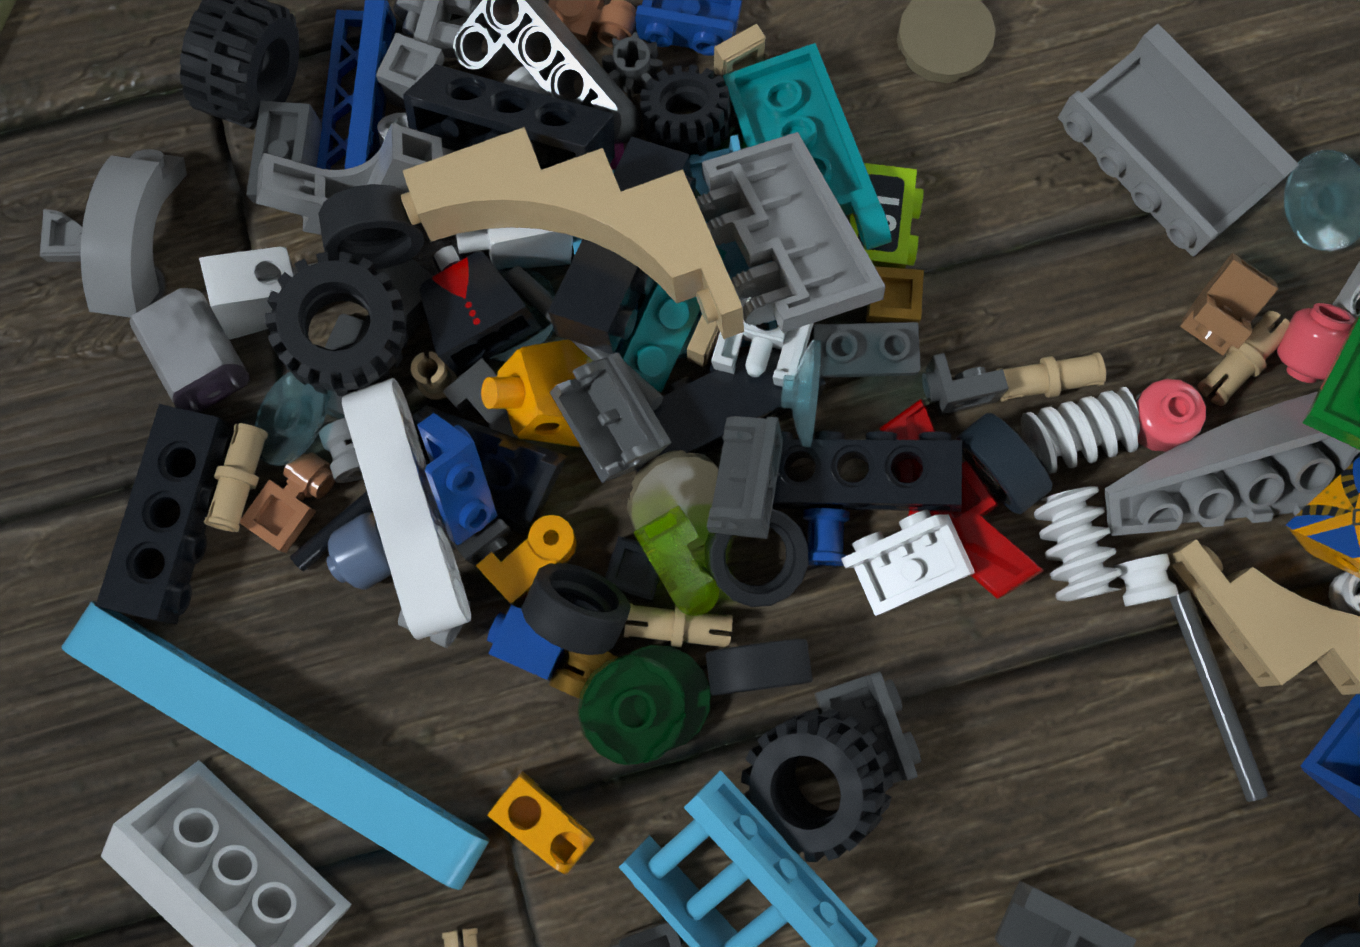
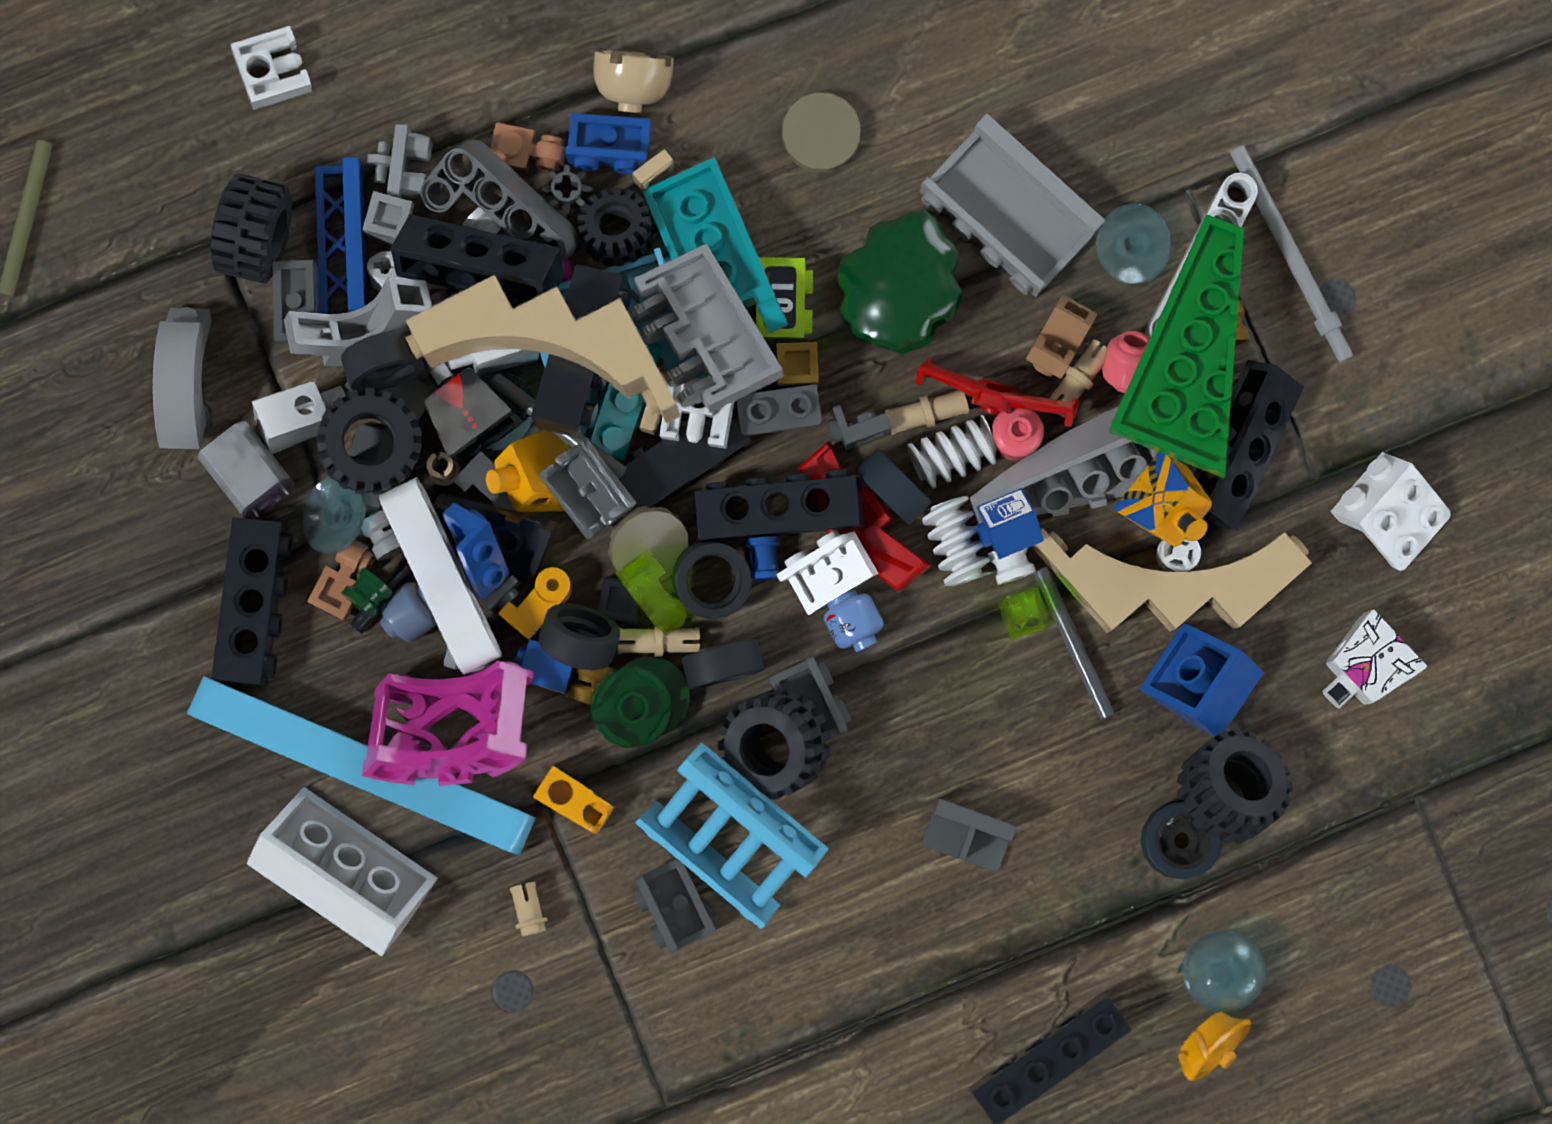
camera: 15 degrees left, 5 degrees up
(60, 238) = (123, 388): light grey tile -> none
(236, 477) = (300, 567): tan pin -> none
(311, 518) = (367, 592): none -> dark green wheel
(448, 671) = (490, 695): none -> dark pink fence
(746, 477) = (696, 522): dark grey hinge -> none
(801, 392) = (729, 453): clear light blue dish -> none
(934, 631) = (853, 620): none -> medium blue head
(1032, 216) = (900, 283): none -> dark green piece
(1144, 367) = (996, 396): none -> red plate
(1156, 528) = (1008, 524): none -> blue brick
(1162, 647) = (1023, 613): none -> clear neon green leg

